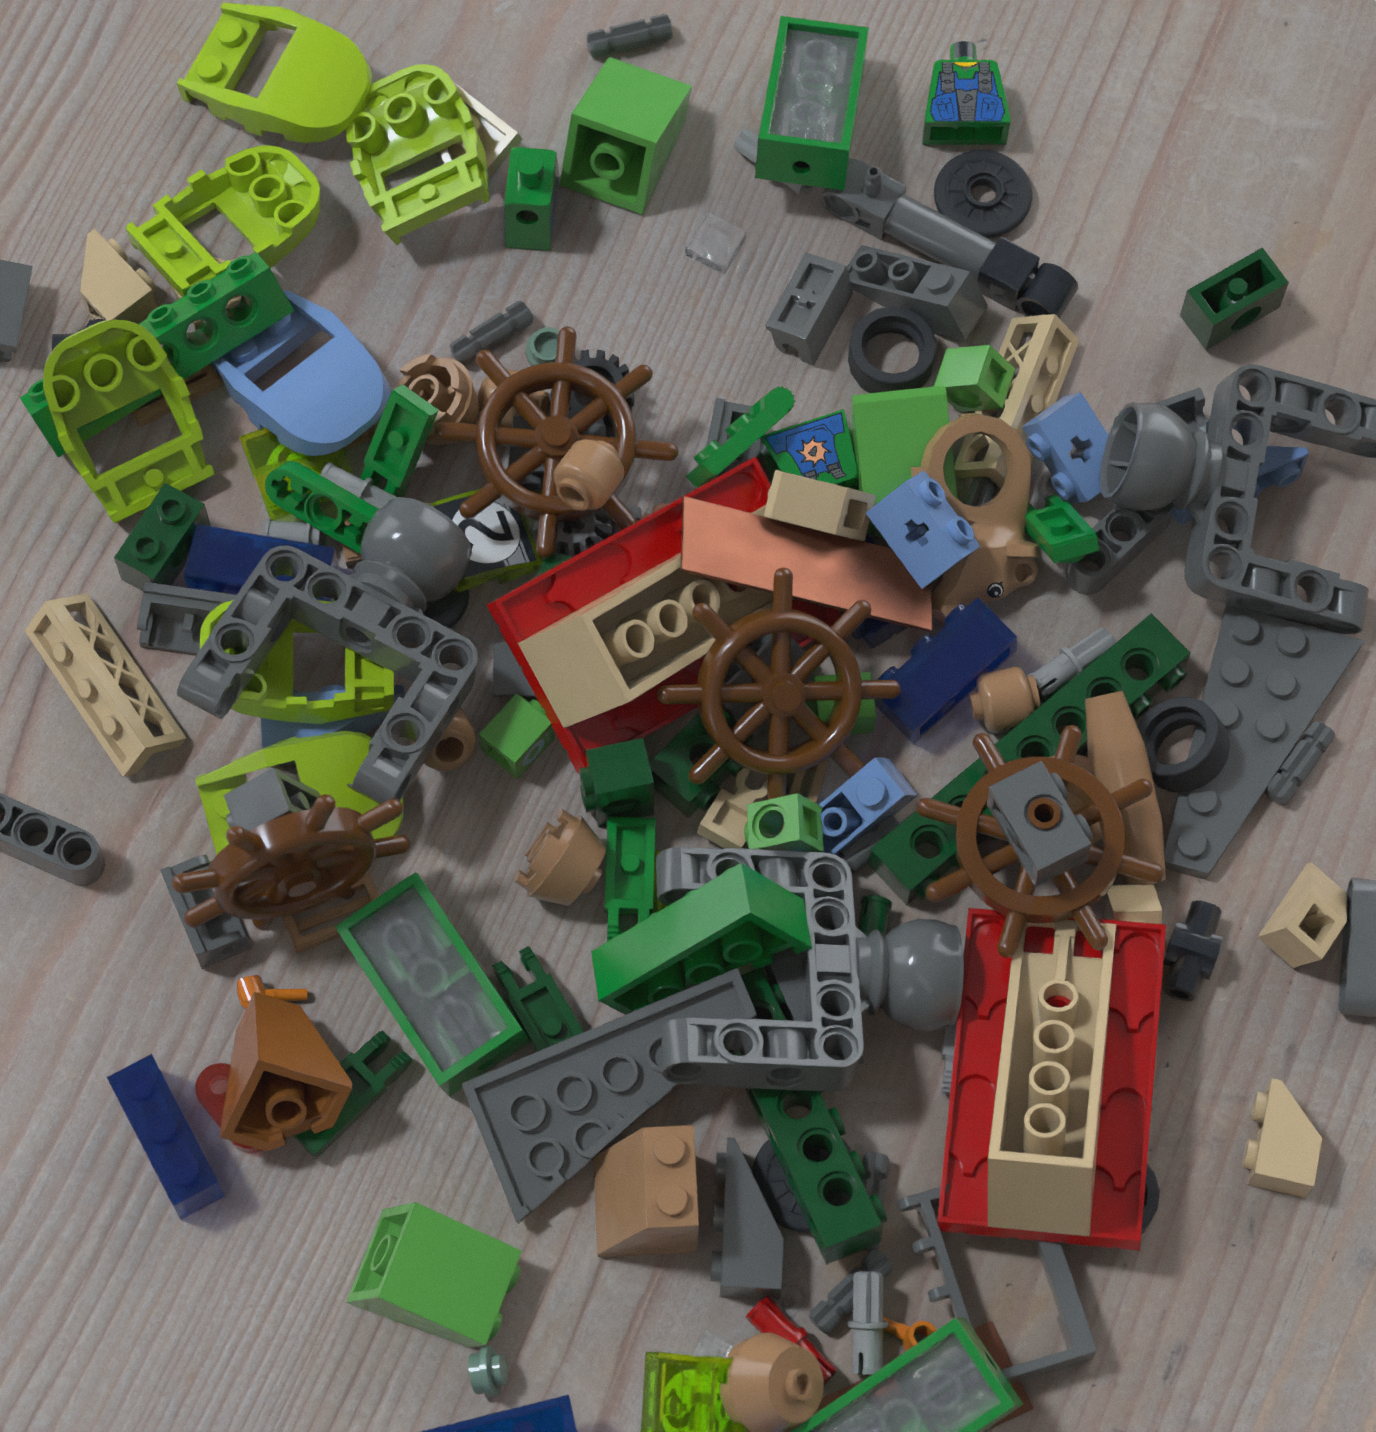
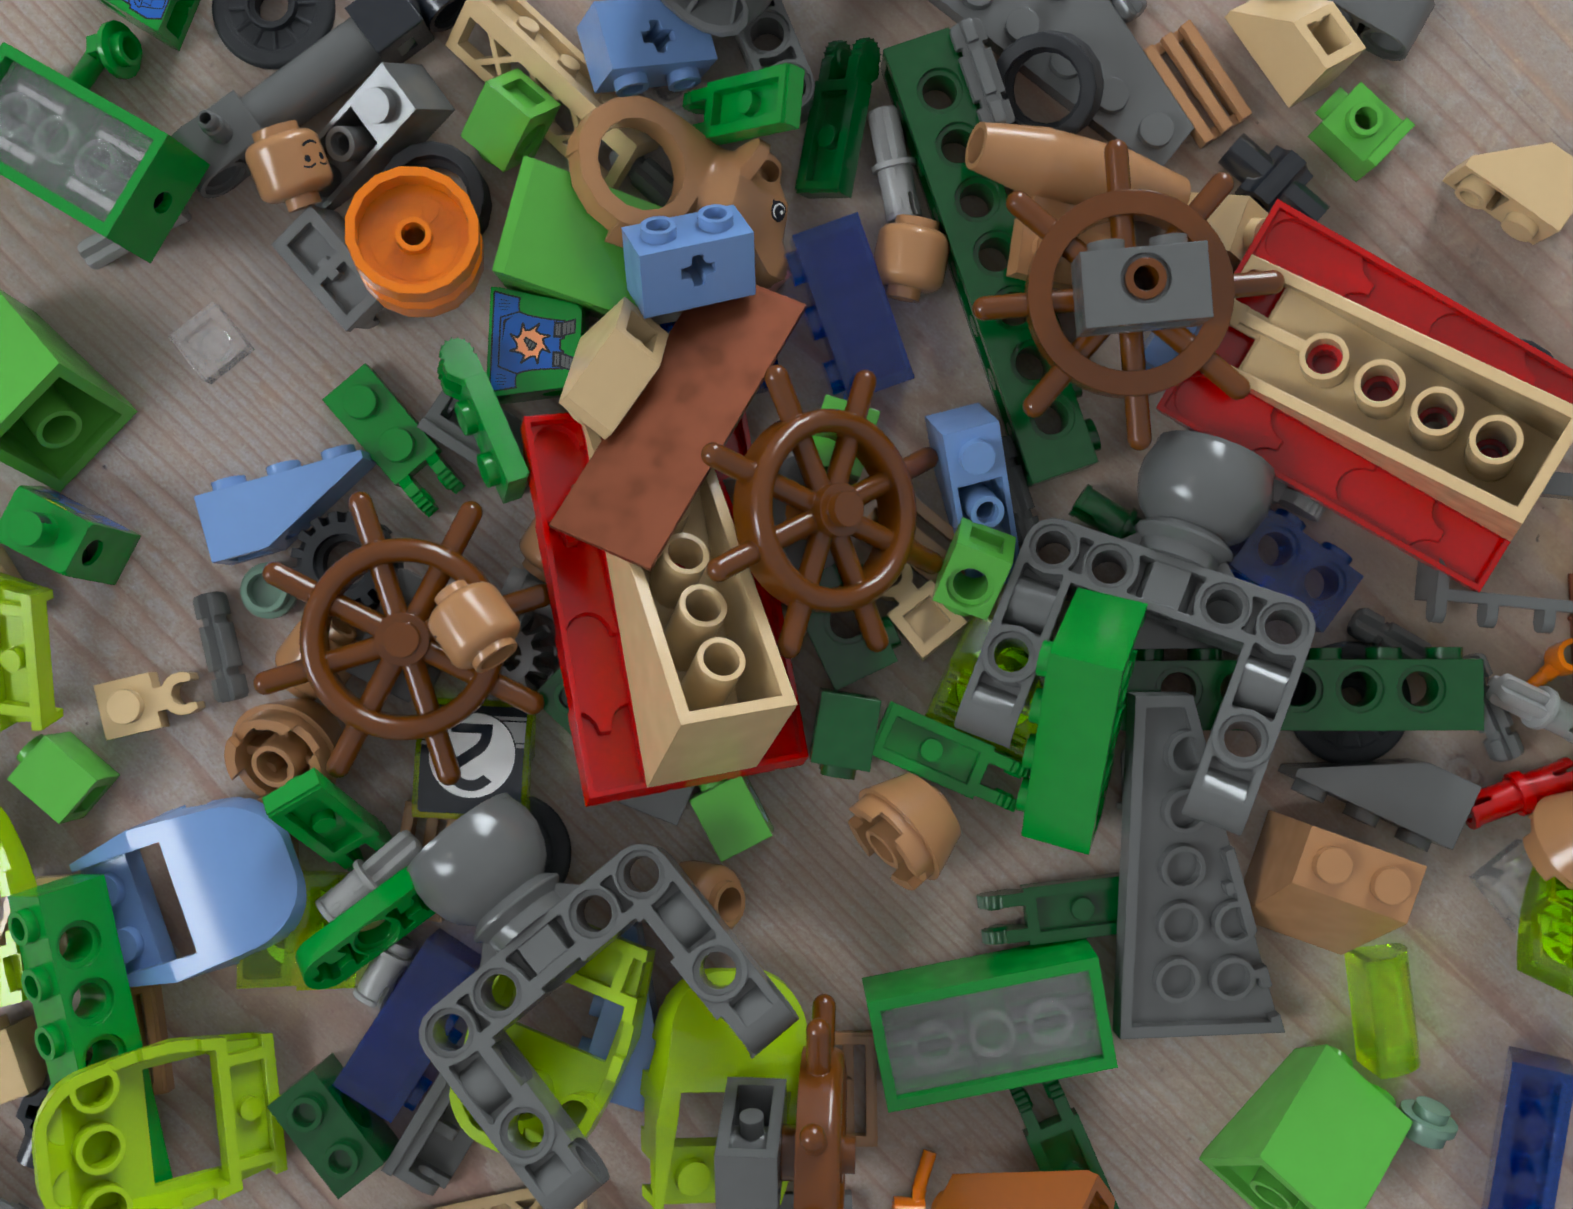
camera: 65 degrees left, 20 degrees up
(350, 262) = (62, 776): none -> bright green brick
(426, 294) = (140, 703): none -> tan plate
(569, 1300) = (1383, 1009): none -> clear neon green brick
(608, 323) = (267, 513): none -> medium blue slope
(705, 379) = (390, 435): none -> green hinge
(849, 340) = (415, 241): none -> orange wheel
(868, 241) = (288, 165): none -> medium nougat head
(884, 1079) = (1295, 559): none -> clear blue brick
(899, 99) = (111, 48): none -> green plate
(1087, 607) = (837, 119): none -> dark green hinge
(1165, 687) = (981, 72): none -> dark grey axle
(1264, 1013) = (1349, 145): none -> bright green brick
(1265, 833) = (1213, 73): none -> medium nougat tile

